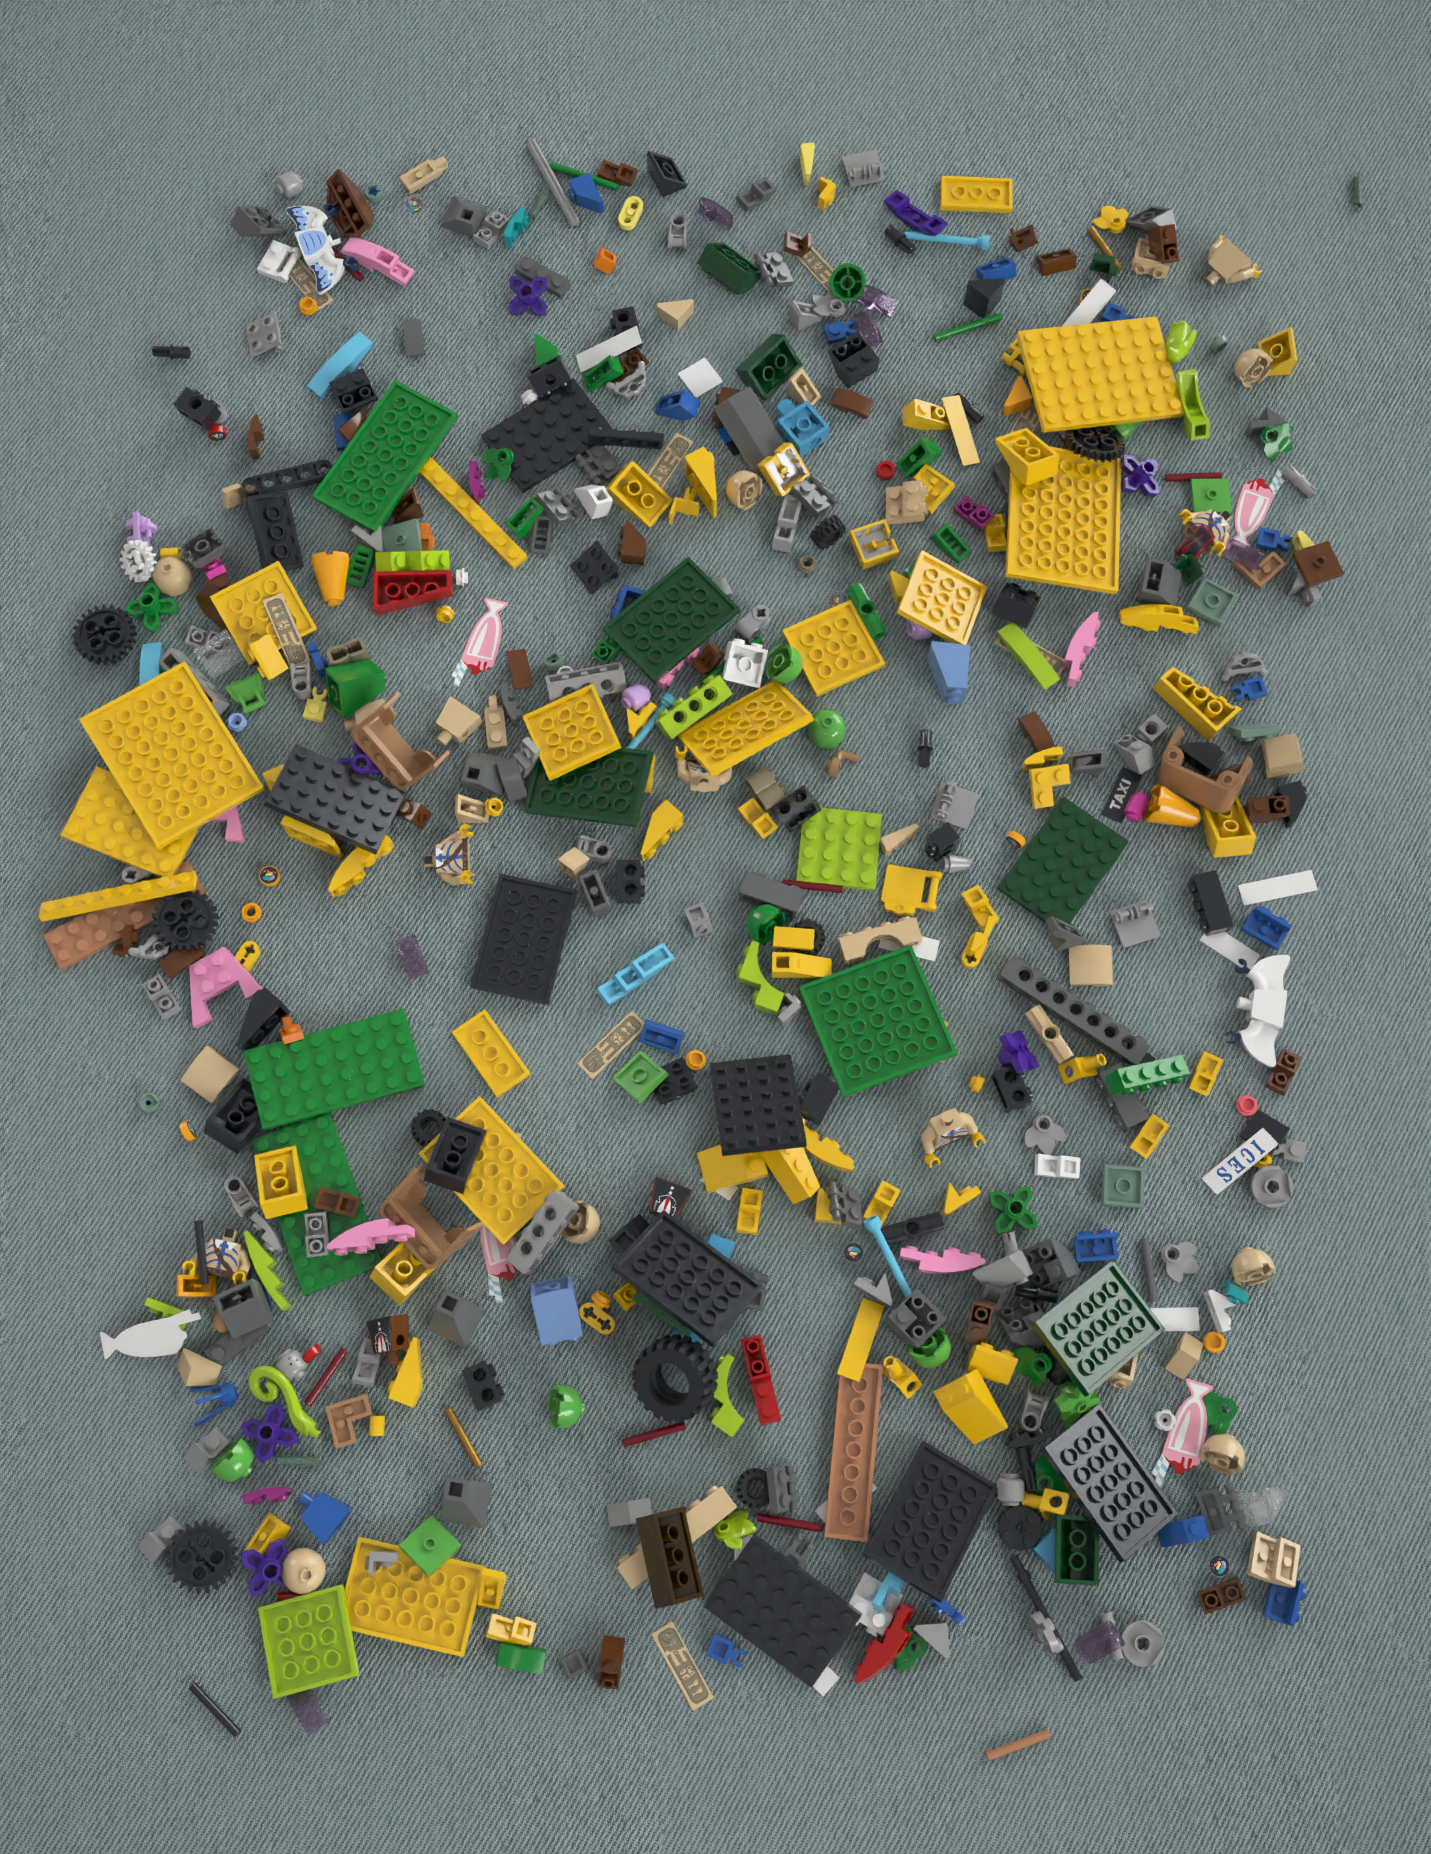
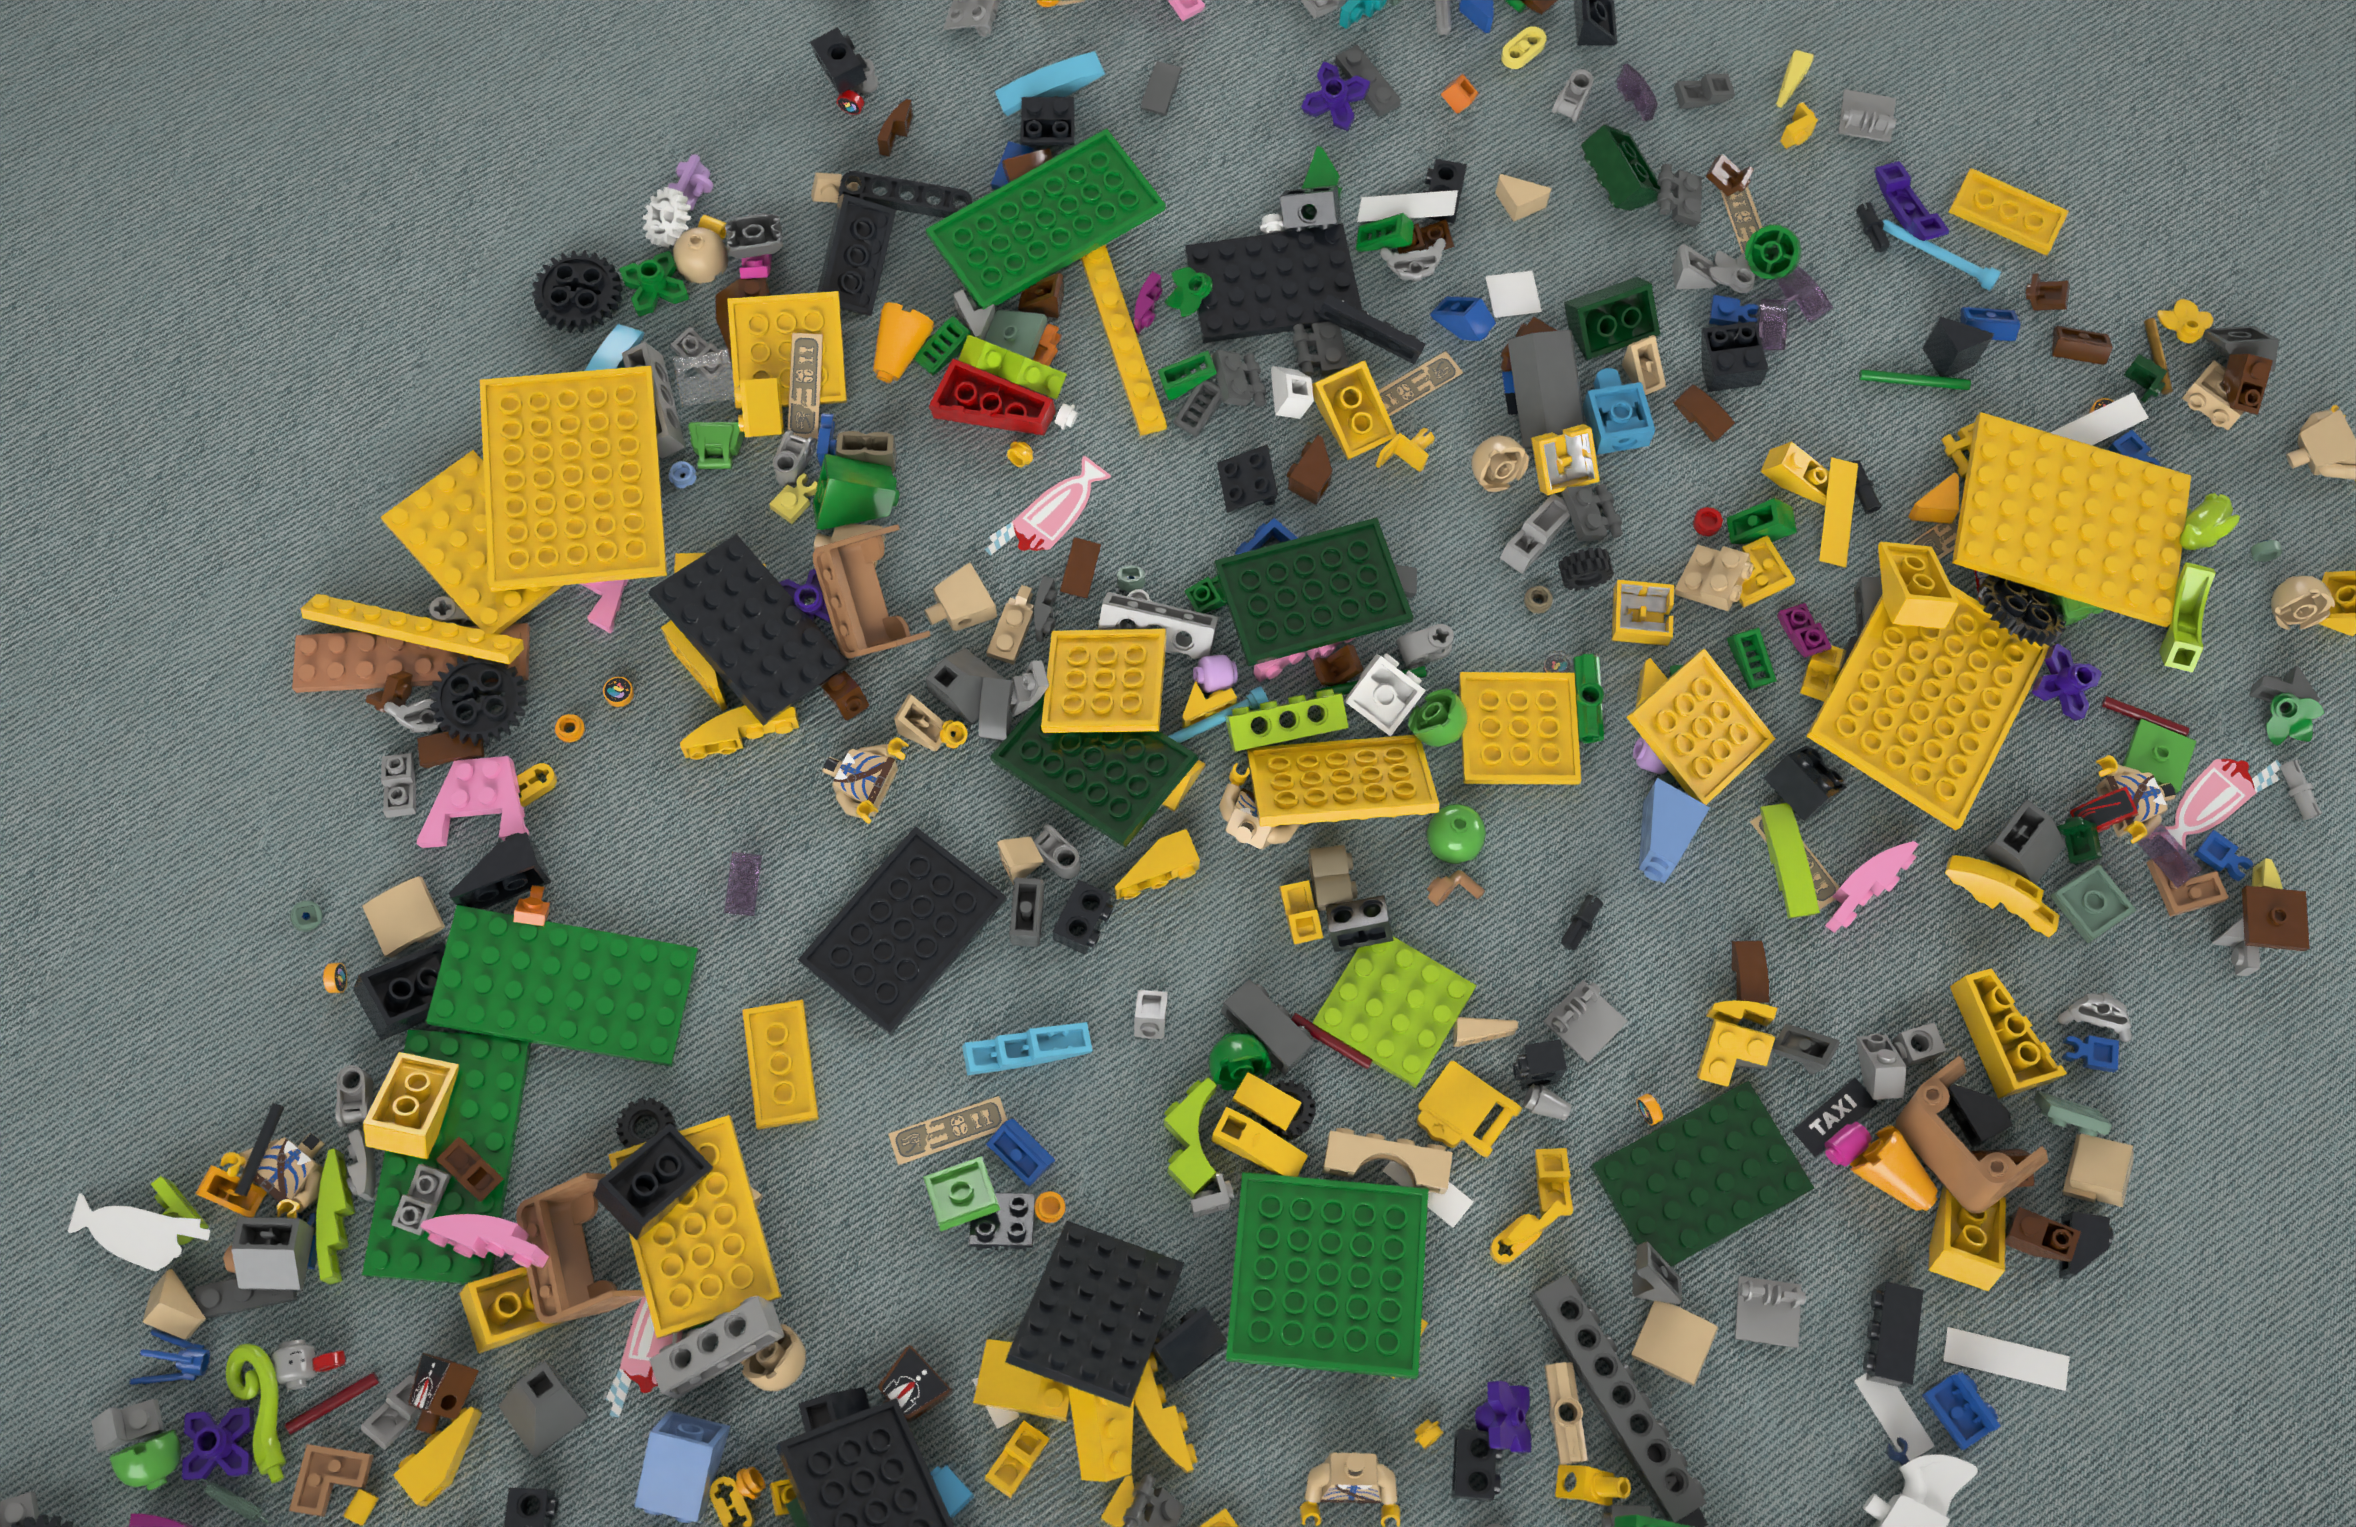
camera: 25 degrees right, 5 degrees down
(701, 475) = (1450, 417): yellow slope -> none

